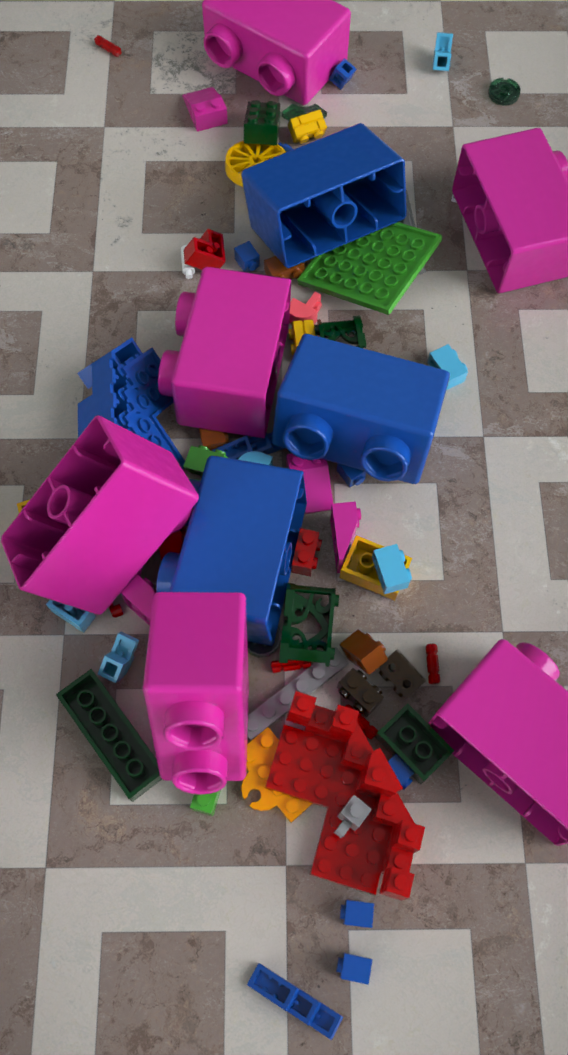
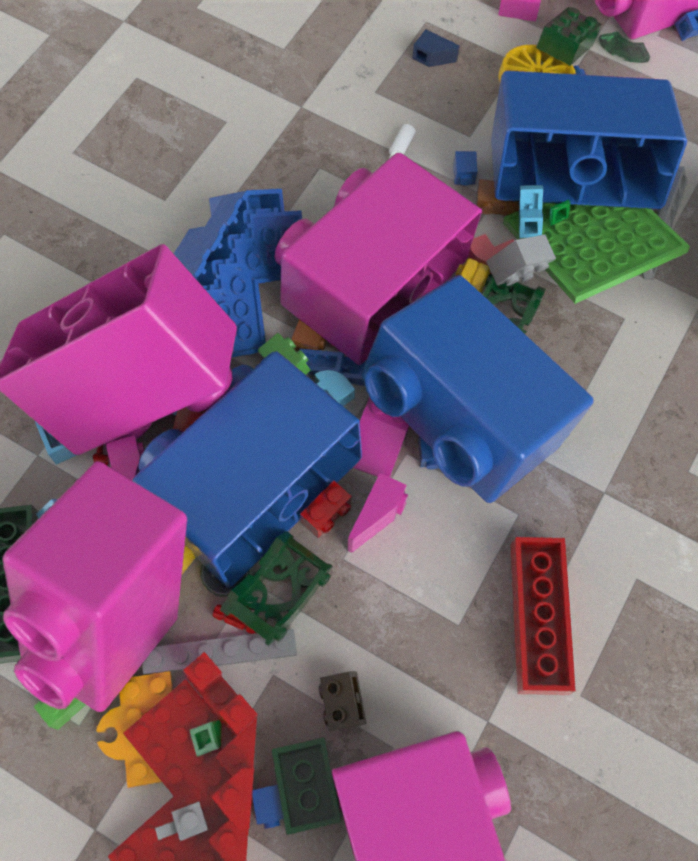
camera: 30 degrees right, 0 degrees up
(168, 179) = (434, 50): none -> dark blue slope
(206, 251) = (422, 142): red brick -> none
(307, 126) = (617, 61): yellow brick -> none
(317, 266) = (530, 211): none -> medium azure brick
(327, 753) = (206, 737): none -> green slope
(333, 303) = (521, 260): none -> light grey brick
(337, 256) = (559, 212): none -> green slope
(360, 567) = (388, 568): yellow brick -> none
(360, 692) = (288, 702): dark brown brick -> none
(364, 651) = (317, 652): dark orange brick -> none
(370, 731) = (267, 724): red axle -> none
(391, 568) = (398, 580): medium azure brick -> none
(432, 664) = (386, 710): red axle -> none
(448, 360) = (610, 394): medium azure brick -> none
(496, 540) = (542, 616): none -> red brick

